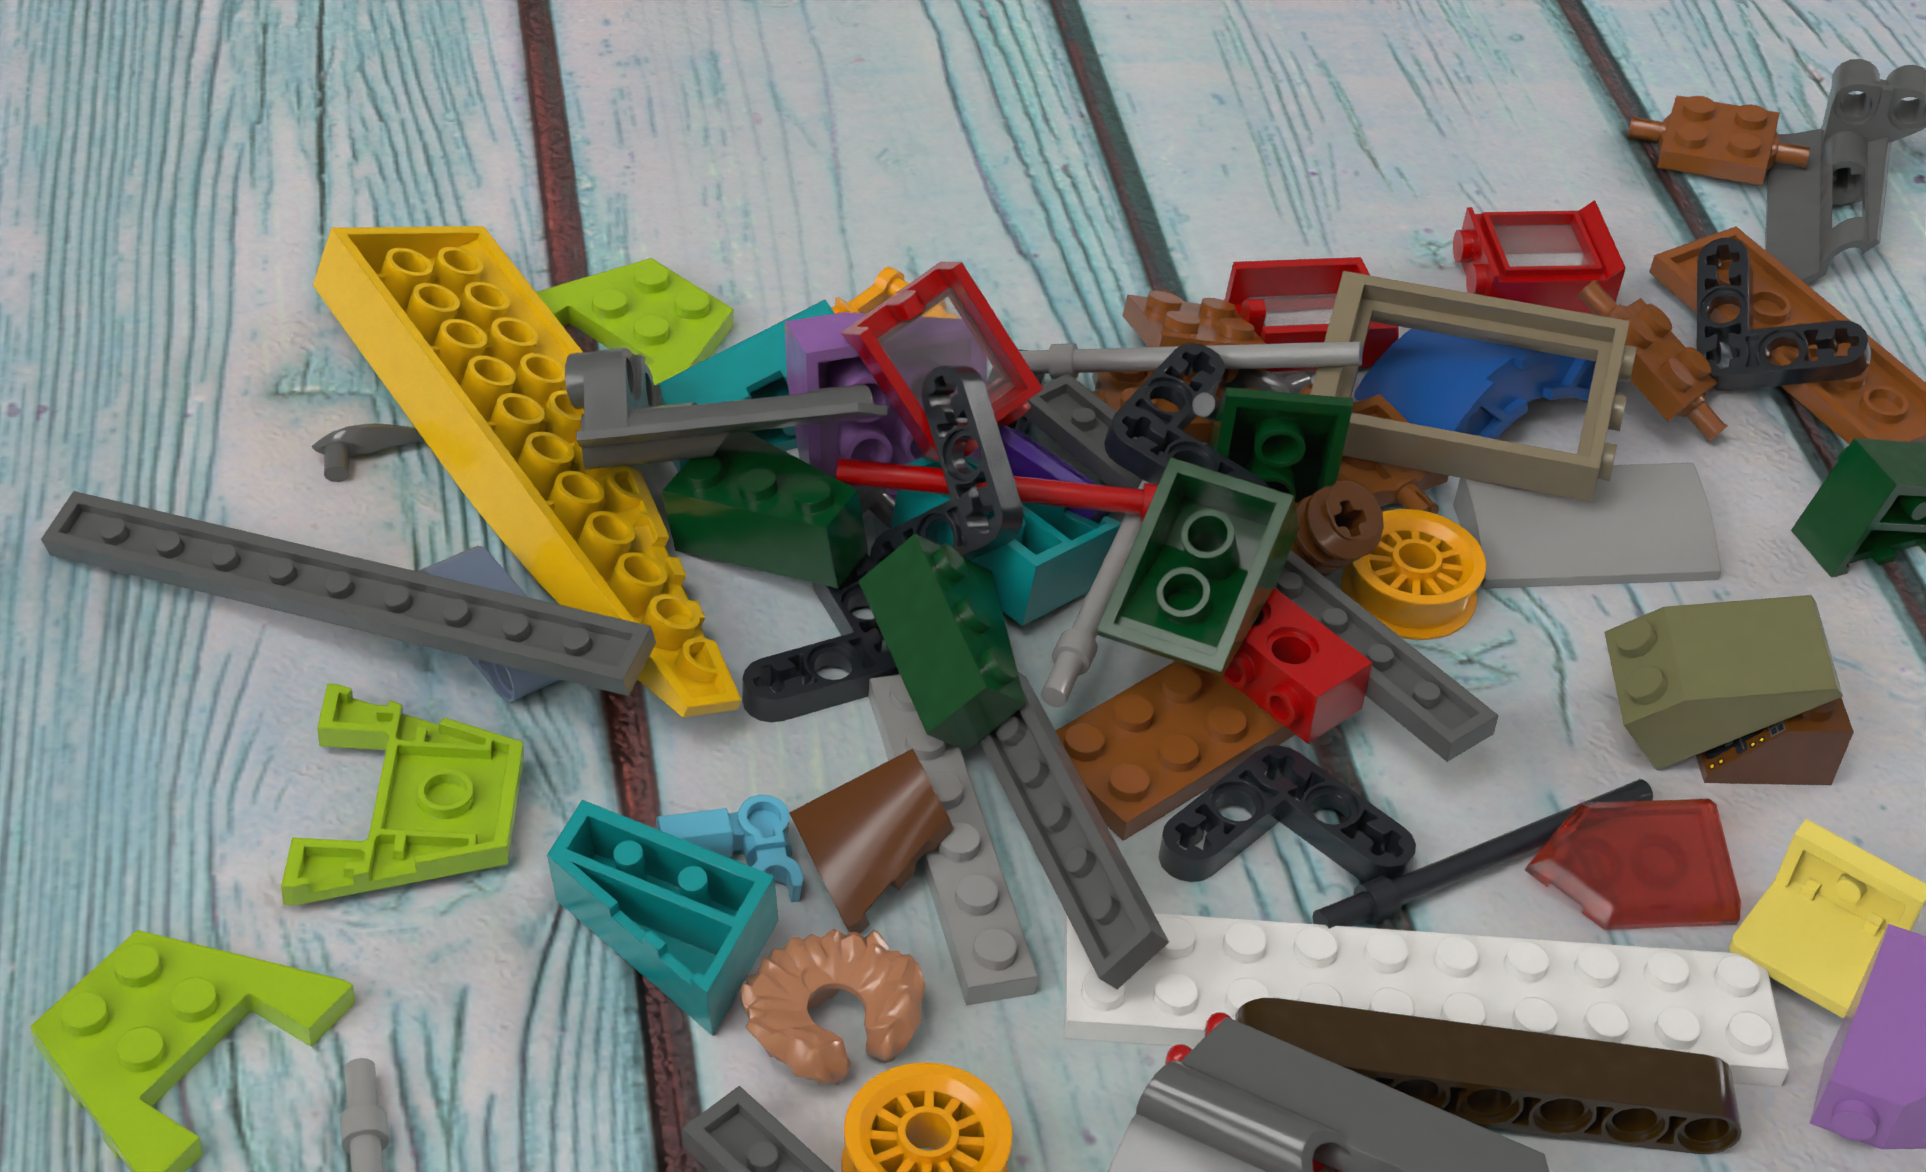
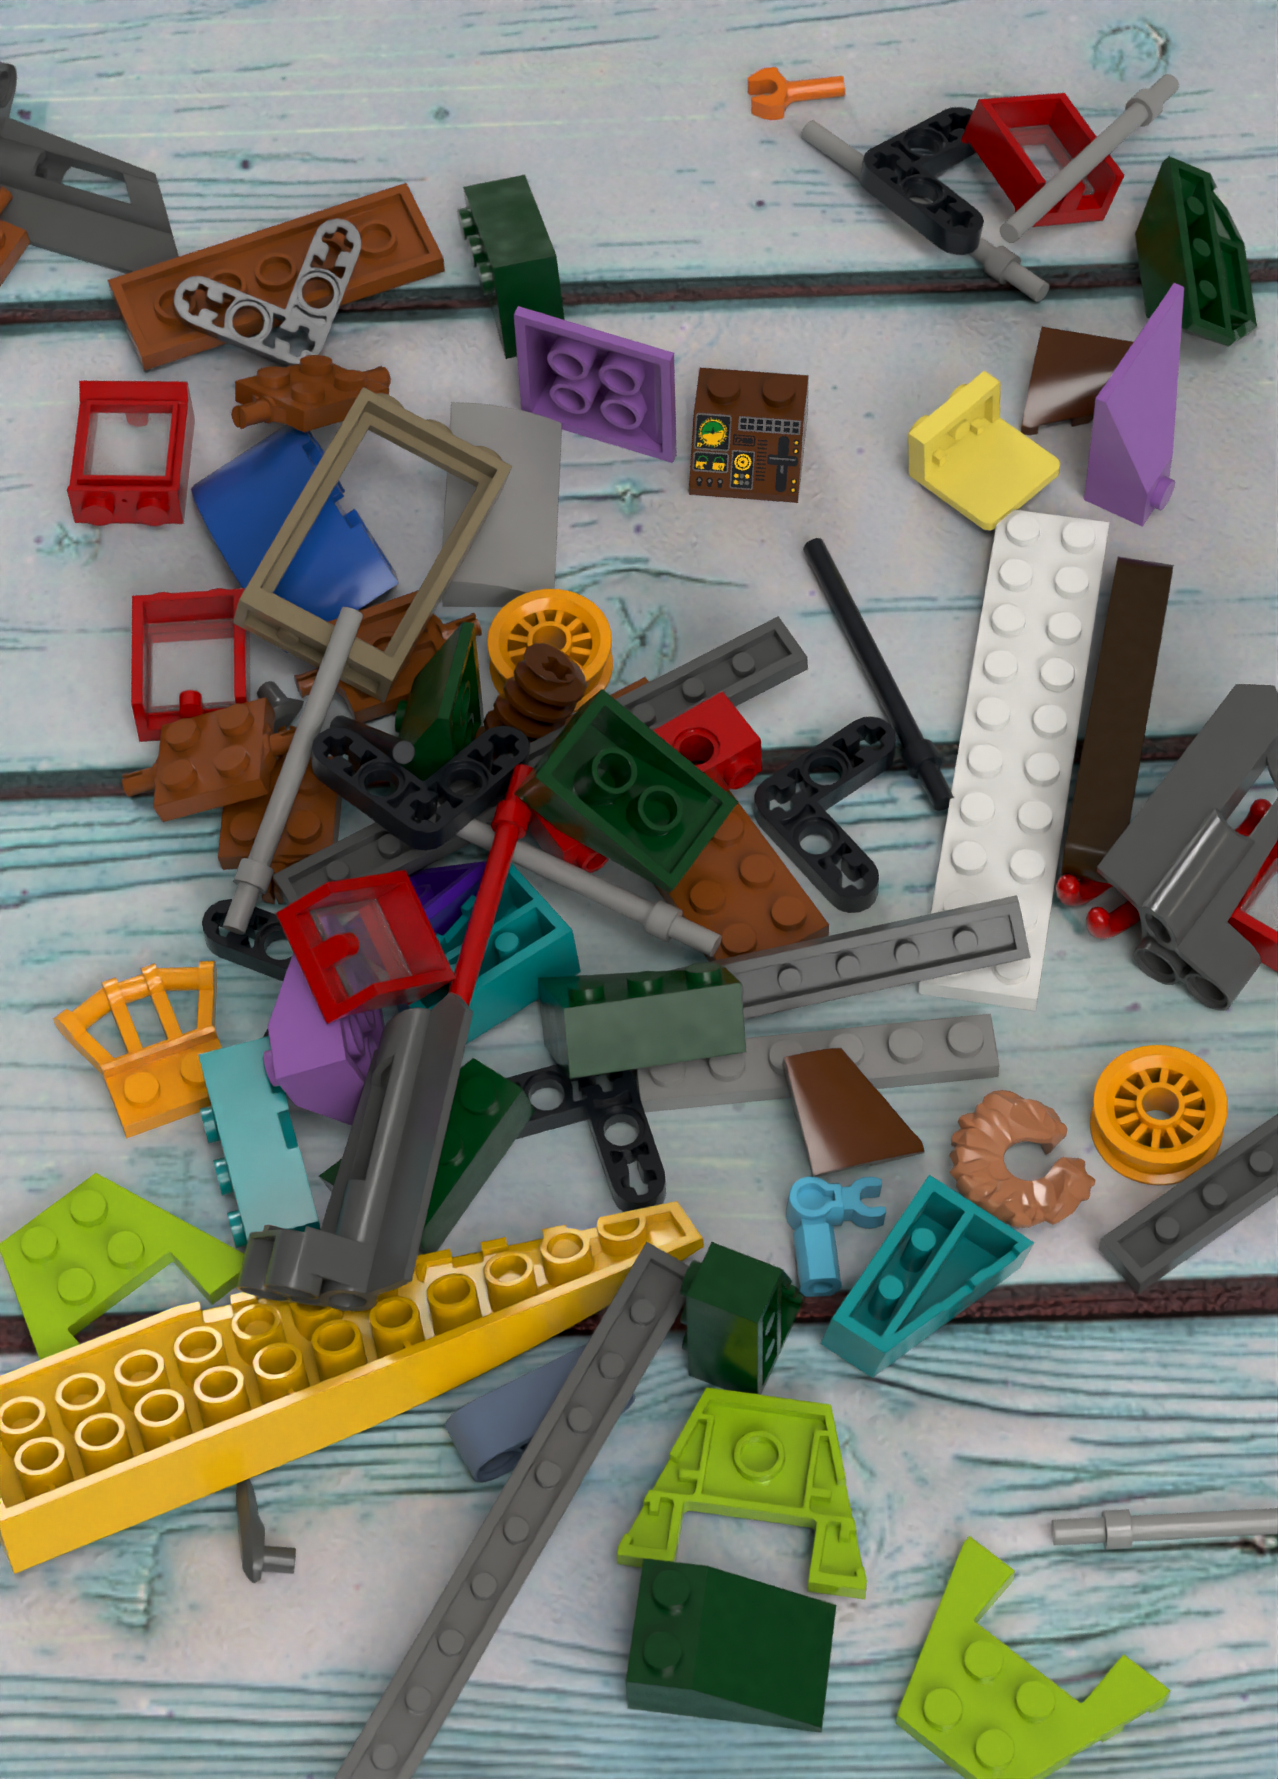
camera: 75 degrees left, 15 degrees up
(221, 780) = (728, 1648): none -> dark green slope
(591, 726) = (736, 1318): none -> dark green wedge
(967, 508) = (499, 963): black beam -> none
(1643, 864) = (897, 563): clear red tile -> none
(1718, 672) = (733, 444): olive slope -> none
(1768, 531) = (597, 383): none -> medium lavender slope

